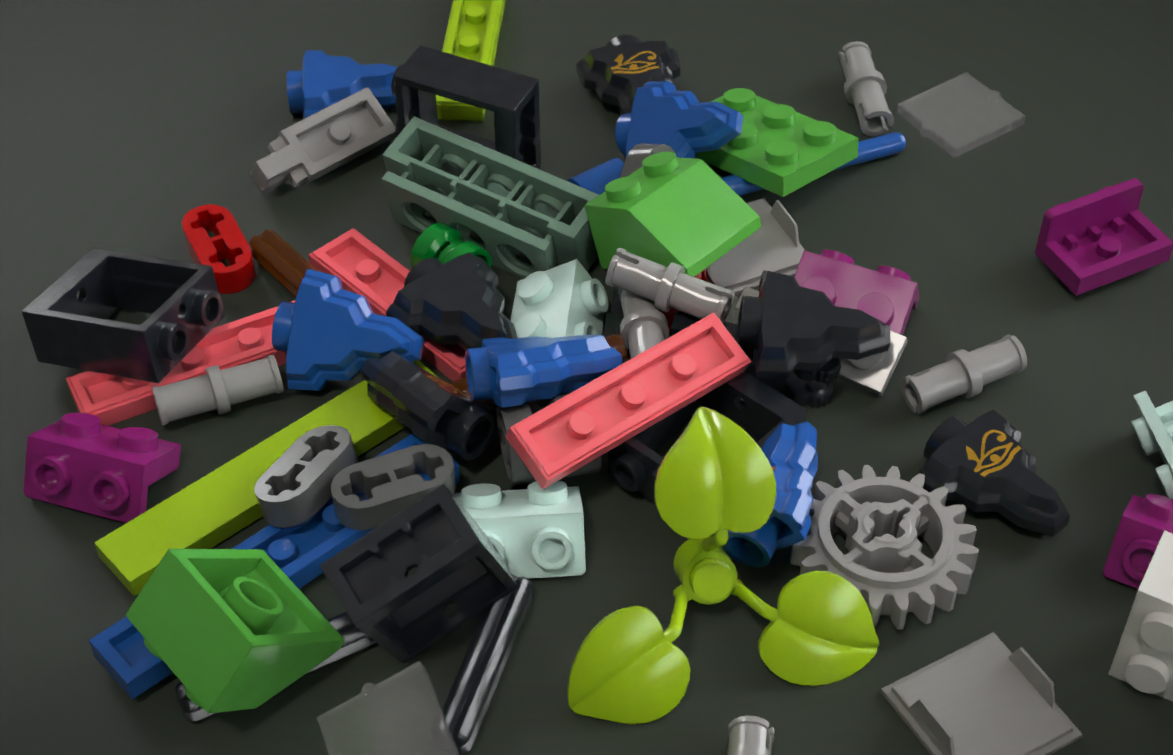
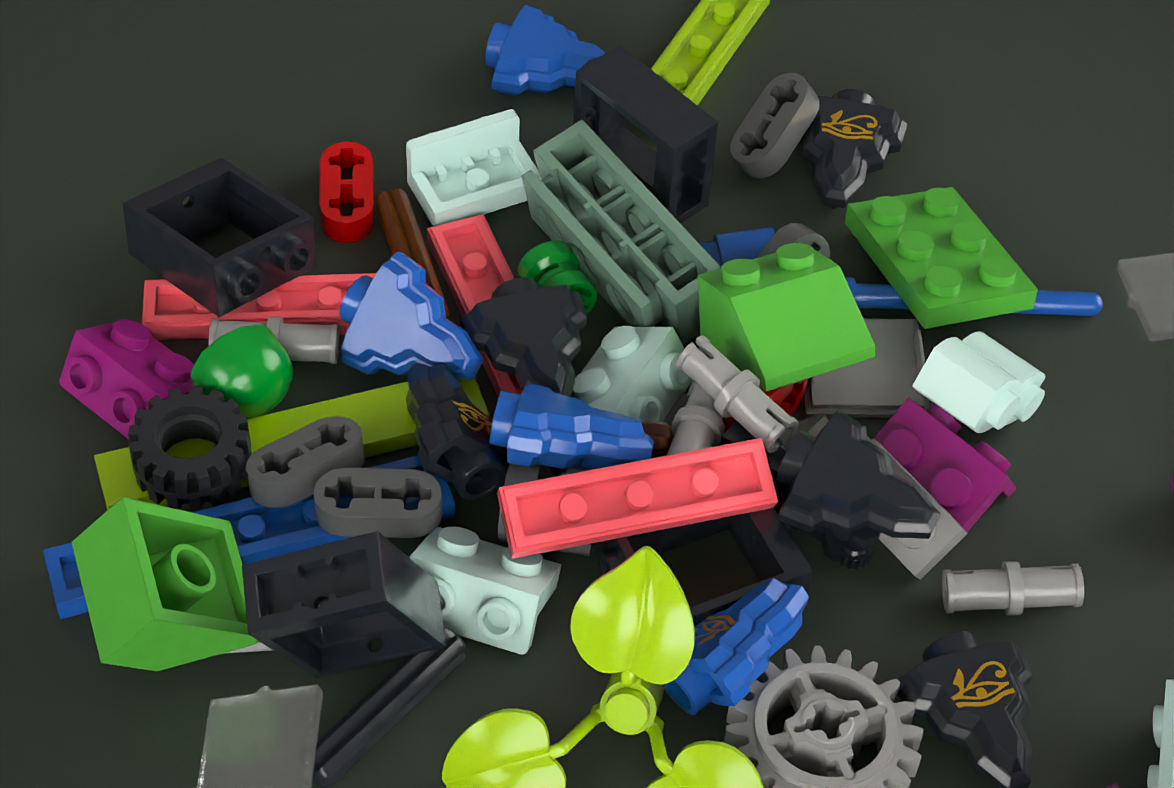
camera: 20 degrees right, 5 degrees up
(184, 473) = (186, 418): none -> black tyre
(208, 422) = (247, 367): none -> green hair
(323, 194) = (469, 168): none -> light aqua bracket
(324, 141) = (538, 98): light grey hinge -> none
(563, 82) = (774, 125): none -> dark grey beam
(676, 120) = (849, 210): blue rock -> none
(854, 221) = (980, 382): none -> light aqua brick
(865, 89) = (1089, 232): light grey pin -> none

